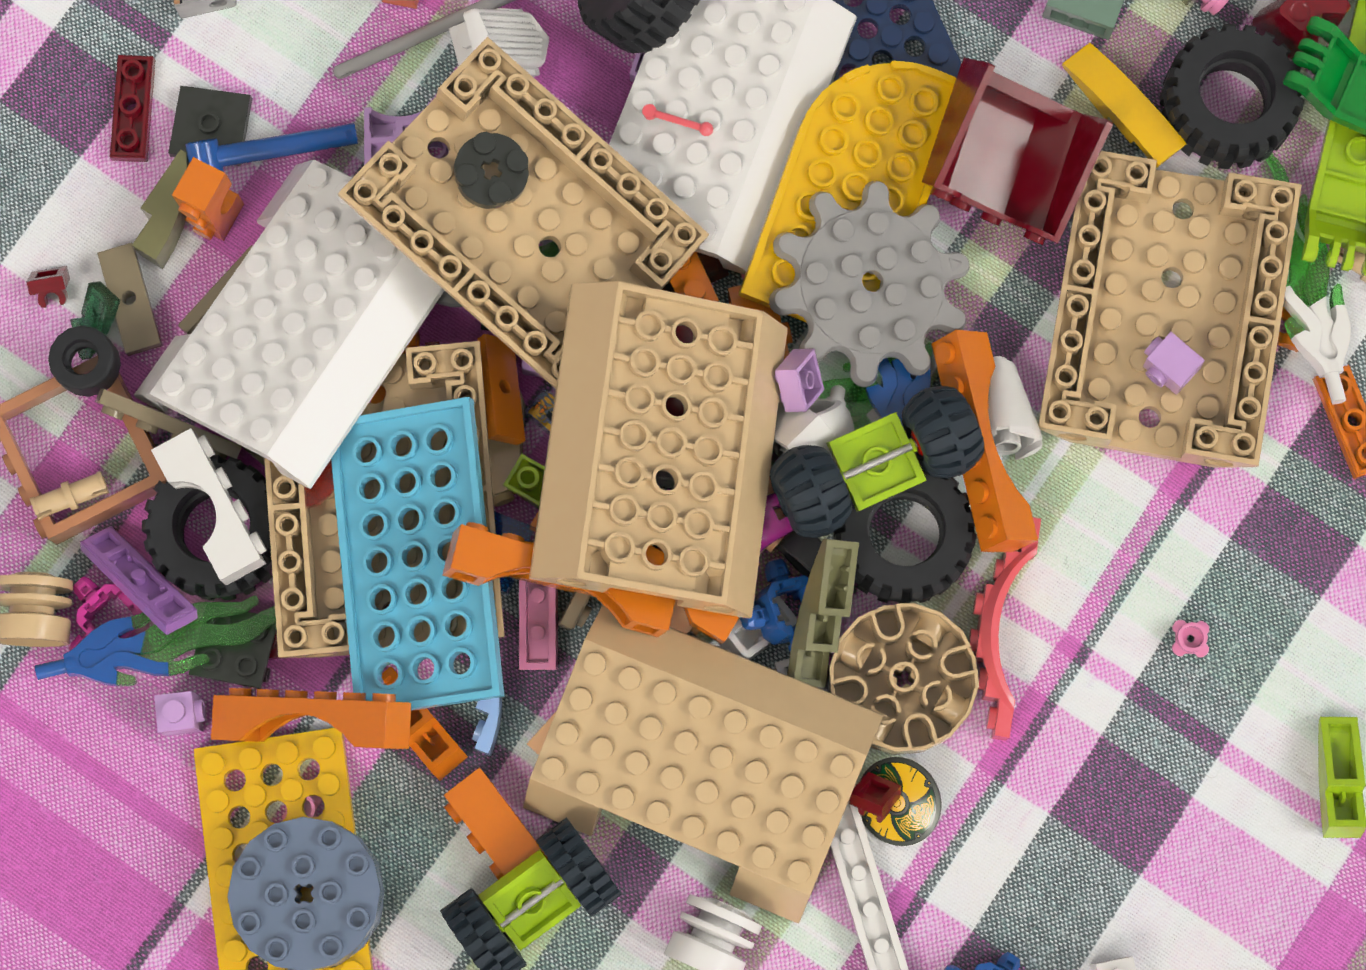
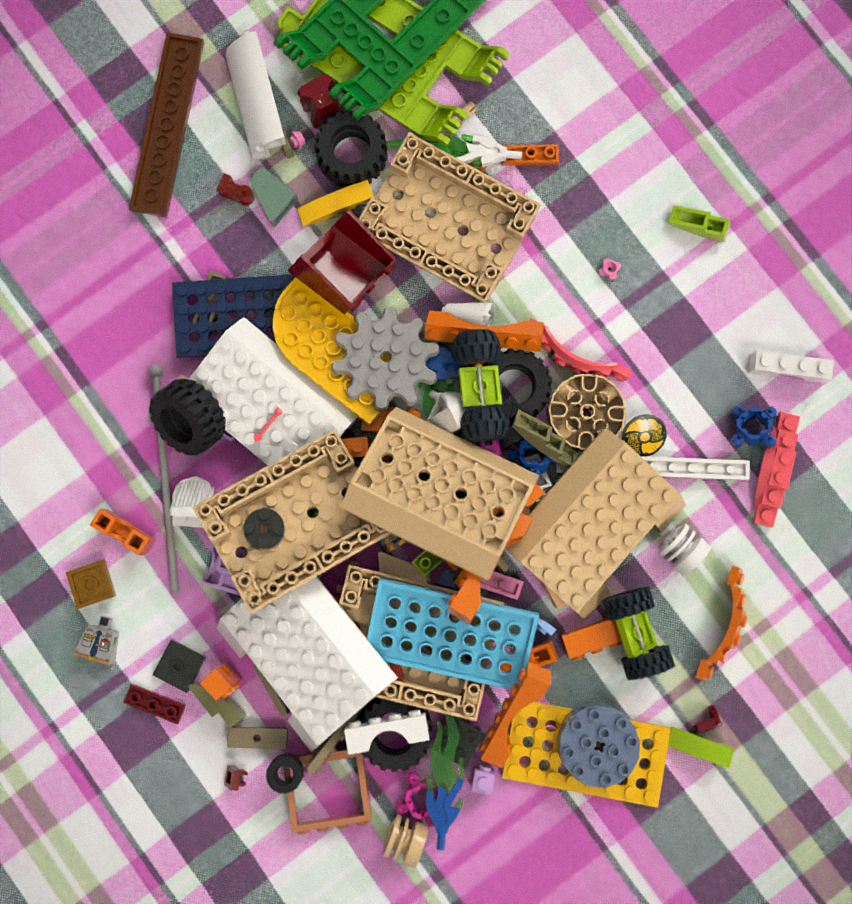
camera: 70 degrees left, 5 degrees up
(69, 495) = (353, 803): tan pin -> none
(97, 312) = (258, 756): clear green slope -> none
(139, 580) = (409, 780): medium lavender plate -> none
(271, 147) = (198, 671): blue piece -> none
(501, 391) = (378, 562): orange tile -> none
(799, 380) = (425, 410): lavender piece -> none
(875, 796) = (640, 444): dark red tile -> none
(1171, 362) = (475, 227): lavender brick -> none

